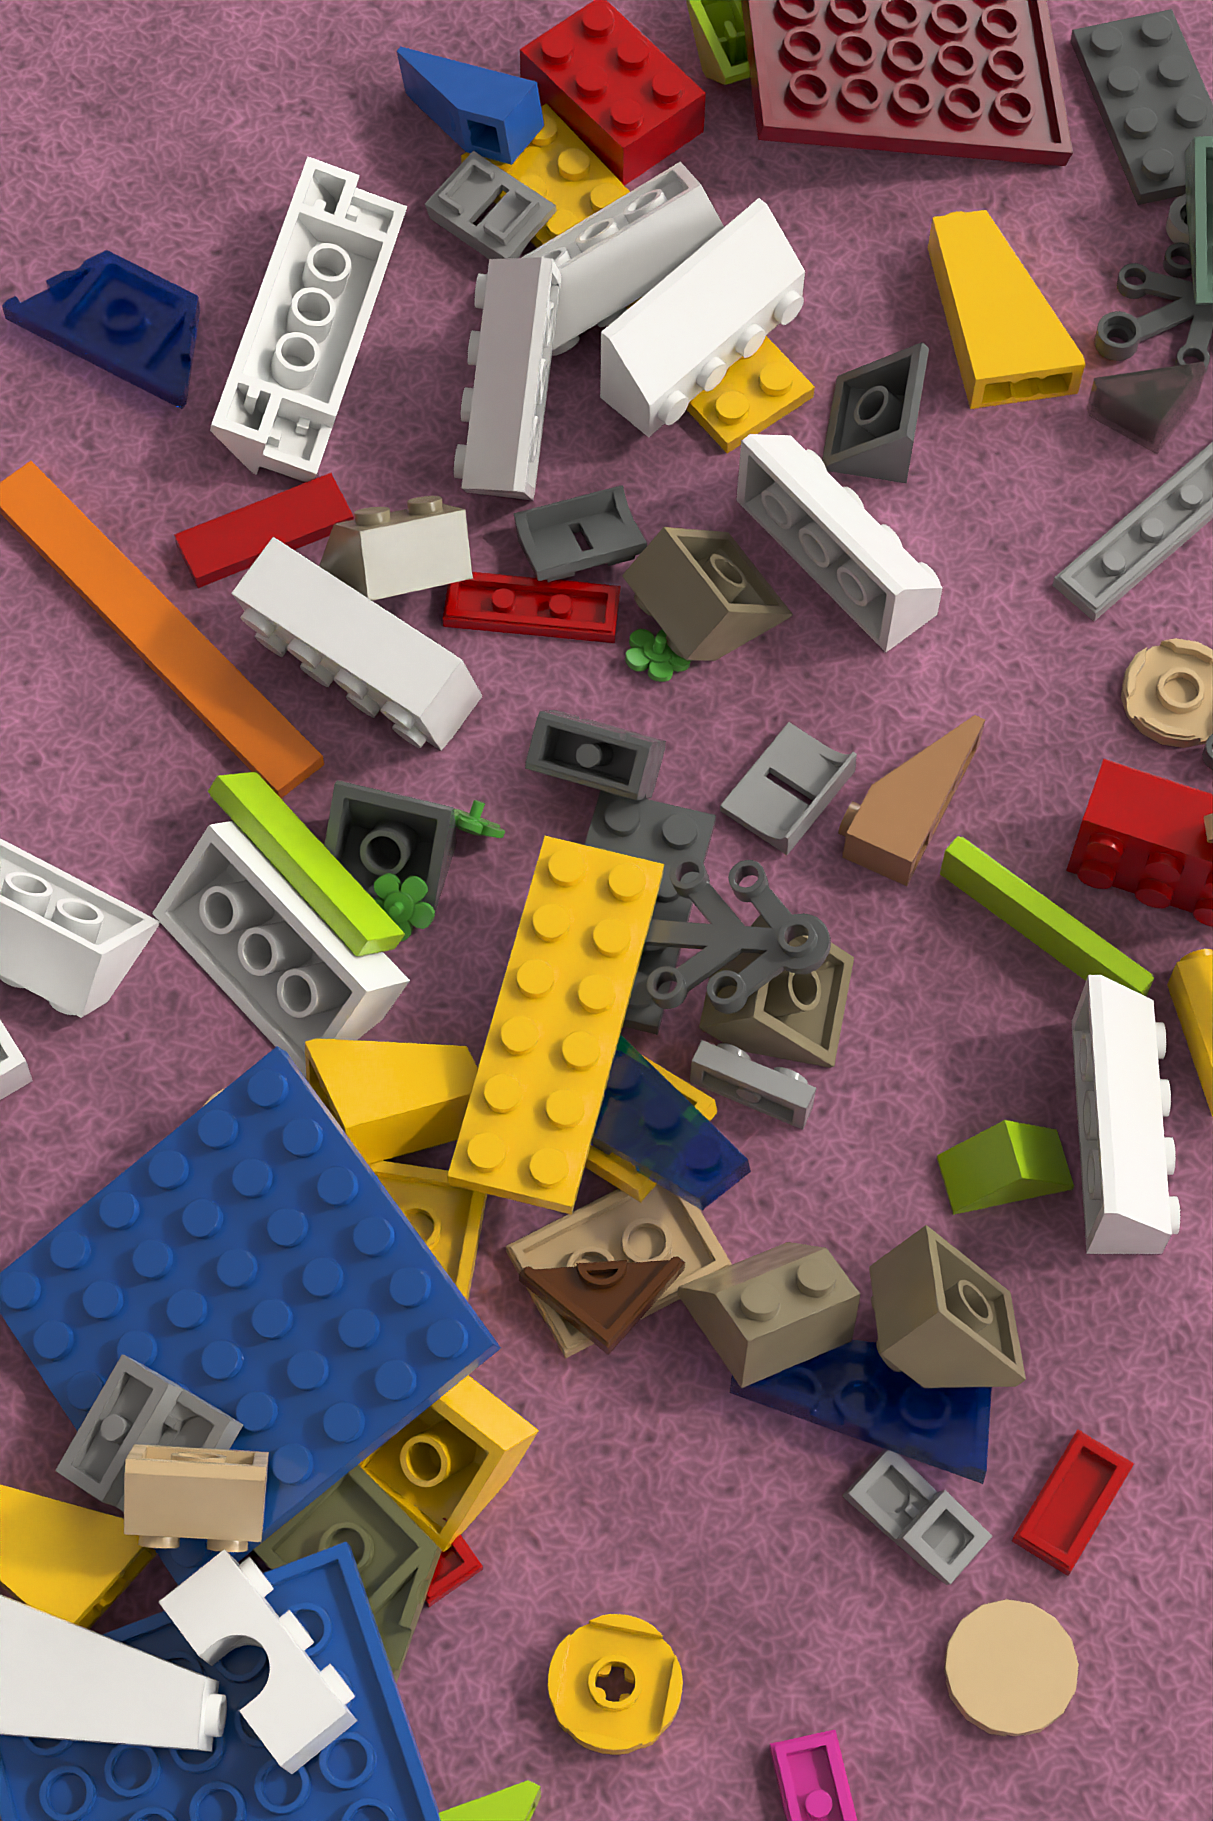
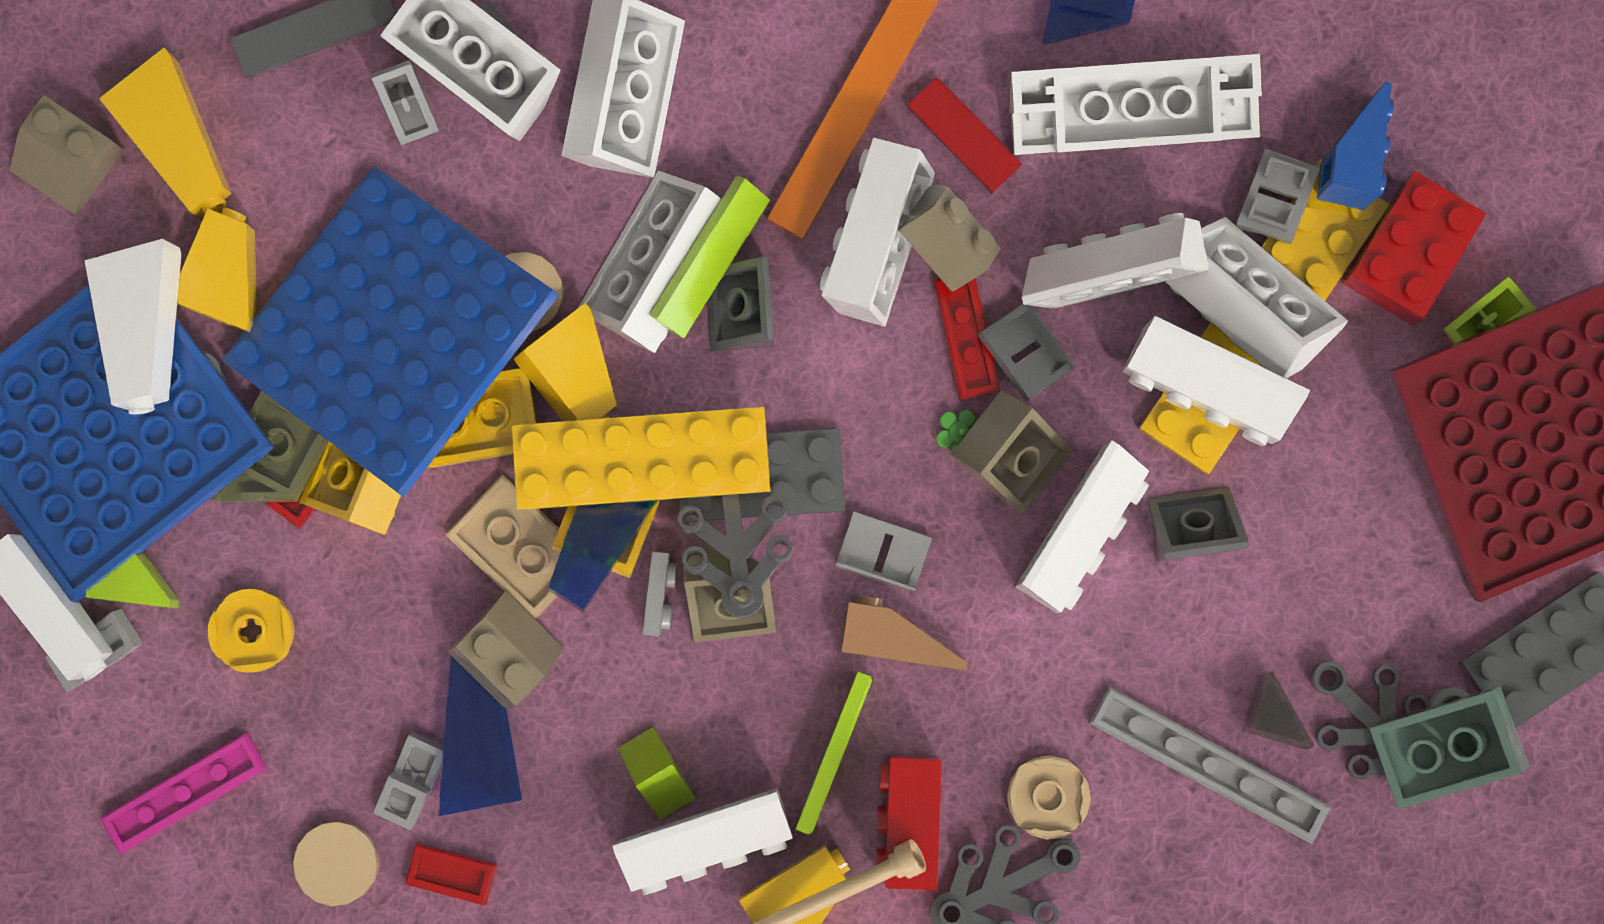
camera: 75 degrees right, 20 degrees up
(140, 1410) = (290, 307): light grey slope -> none
(195, 1495) = (258, 346): tan slope -> none
(299, 1705) = (203, 397): white arch -> none
(402, 902) = (710, 327): bright green plant -> none
(474, 824) = (785, 352): bright green plant -> none
(595, 754) = (855, 417): dark grey brick -> none
(604, 1296) = (483, 545): reddish brown tile -> none
(944, 1317) = (531, 763): dark tan slope -> none
(997, 318) = (1311, 587): yellow slope -> none

